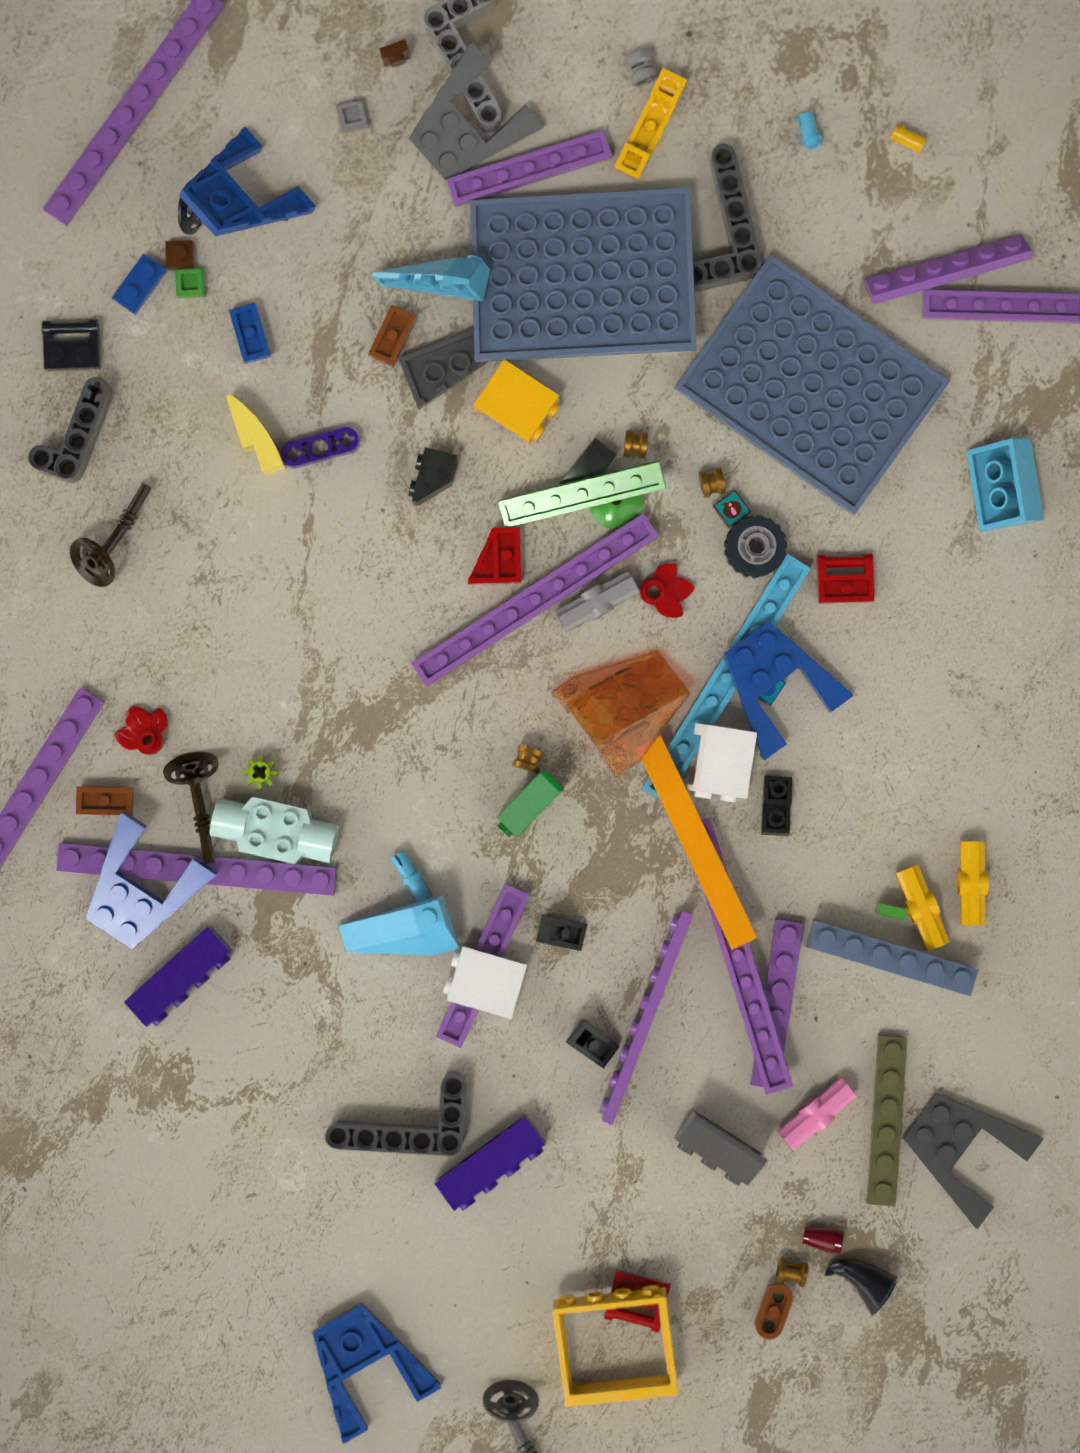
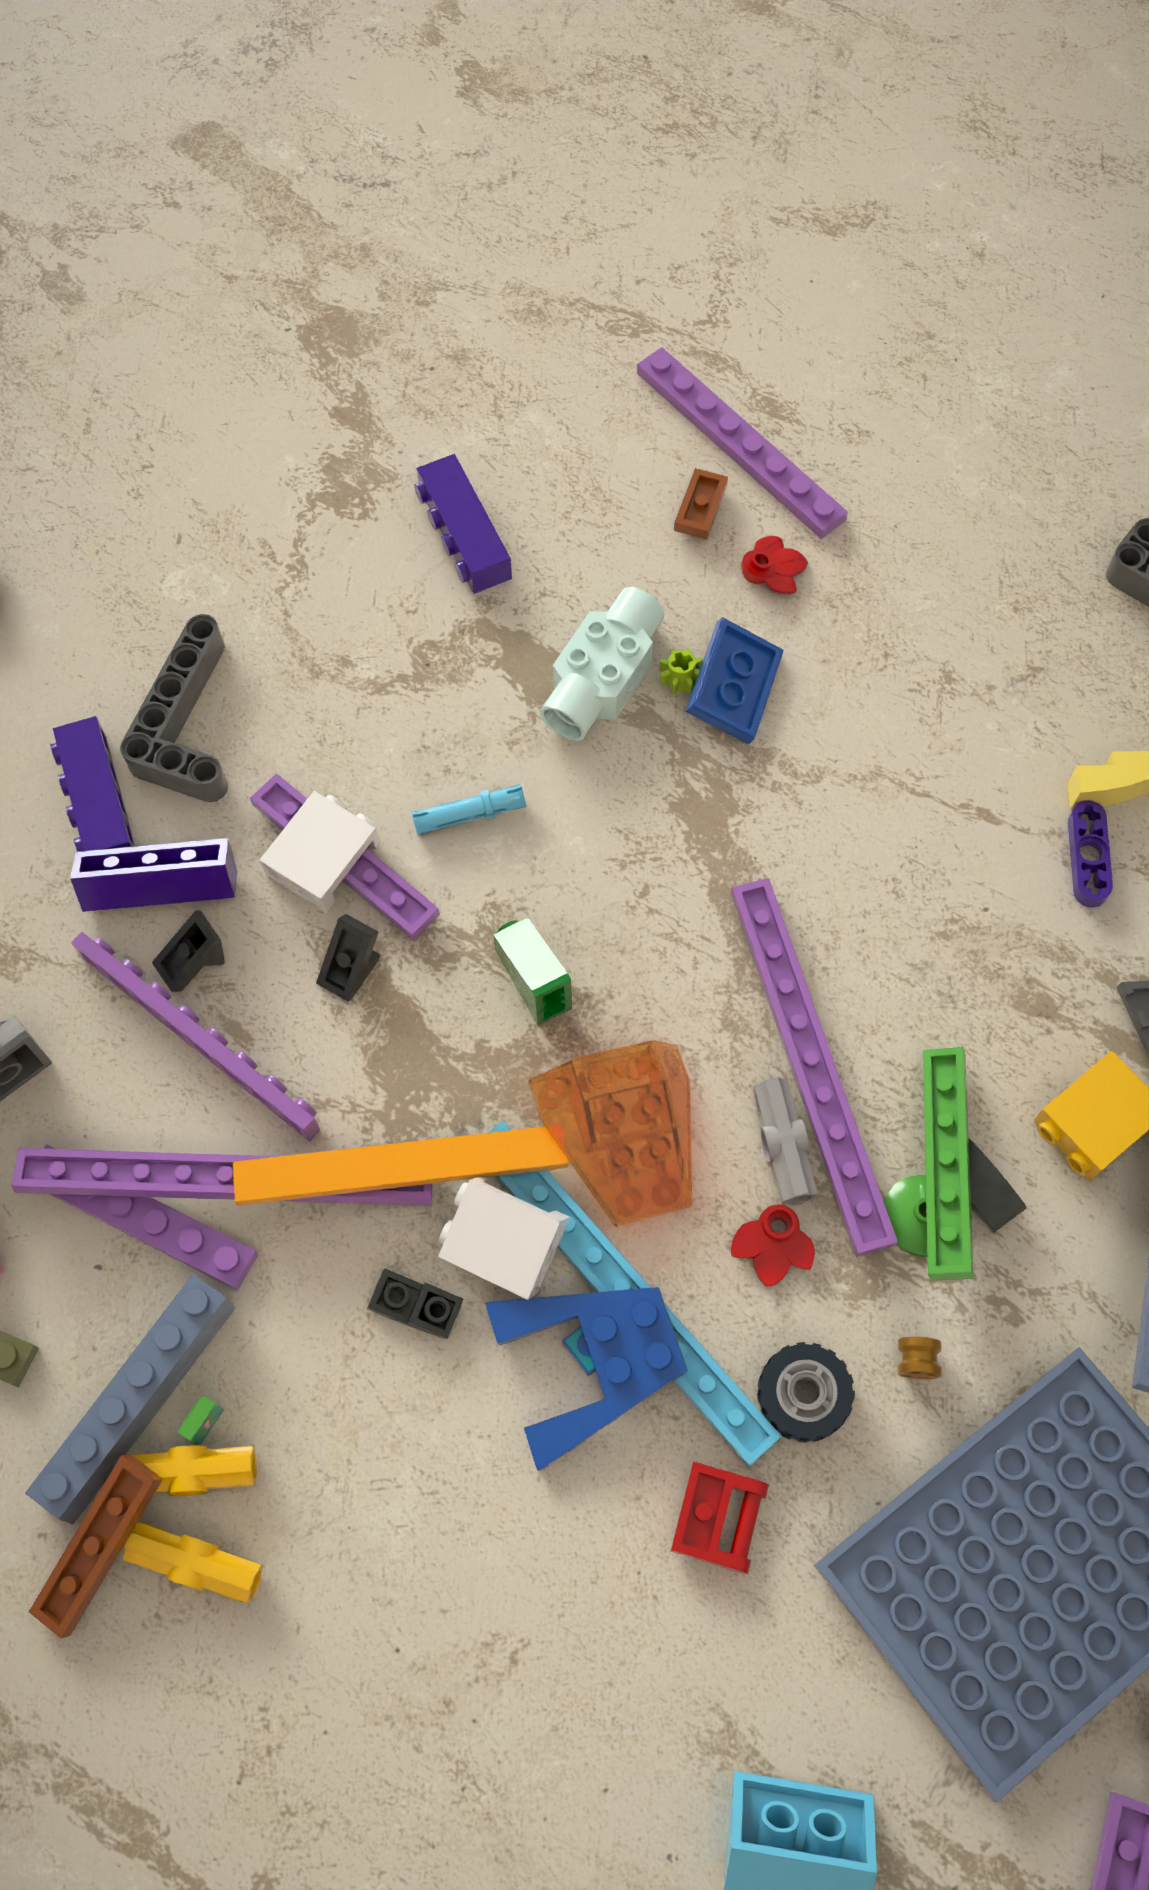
camera: 110 degrees right, 20 degrees down
(100, 555) = (1004, 564): dark brown dish -> none
(127, 908) = (570, 488): wing -> none
(193, 777) = (700, 595): dark brown dish -> none
(229, 871) = (583, 581): medium lavender plate -> none
(257, 730) = (734, 680): none -> blue tile
(406, 930) = (423, 780): medium azure wedge -> none
(434, 475) = (1018, 977): pearl dark grey slope -> none
(499, 559) = (881, 1031): red wing -> none
(528, 758) = (593, 986): pearl gold wheel -> none
(542, 1089) = (154, 875): none -> dark purple brick
(635, 444) = (1003, 1263): pearl gold wheel -> none
(731, 509) = (872, 1377): tile -> none
(983, 942) = (95, 1545): none -> dark orange plate

